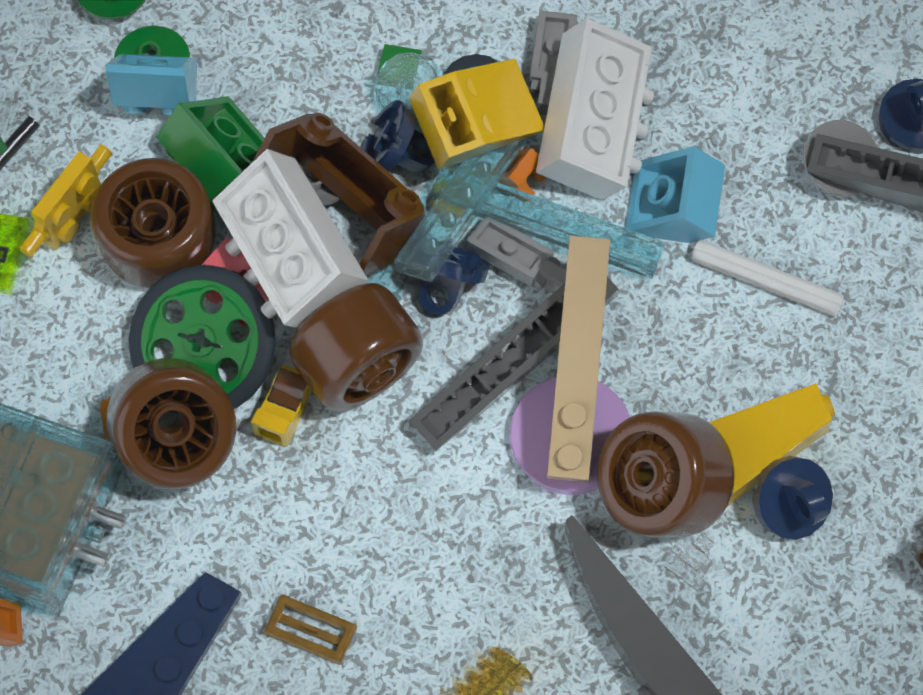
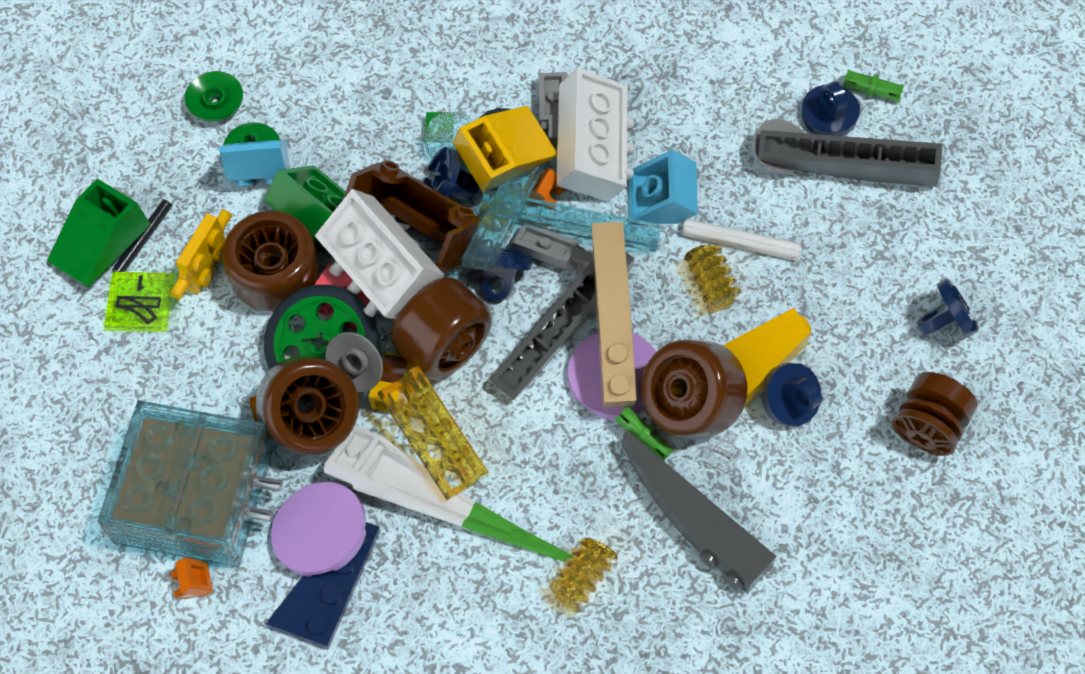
camera: 10 degrees left, 5 degrees down
(164, 583) = (318, 529): none -> lavender tile
(241, 373) = (357, 358): none -> light grey dish
(265, 527) = (391, 475): none -> white plate
(304, 644) = (434, 559): pearl gold tile -> none
(338, 481) = (442, 428): none -> clear yellow fence
(594, 521) = (636, 426): none -> bright green pin
(718, 324) = (712, 277): none -> clear yellow piece

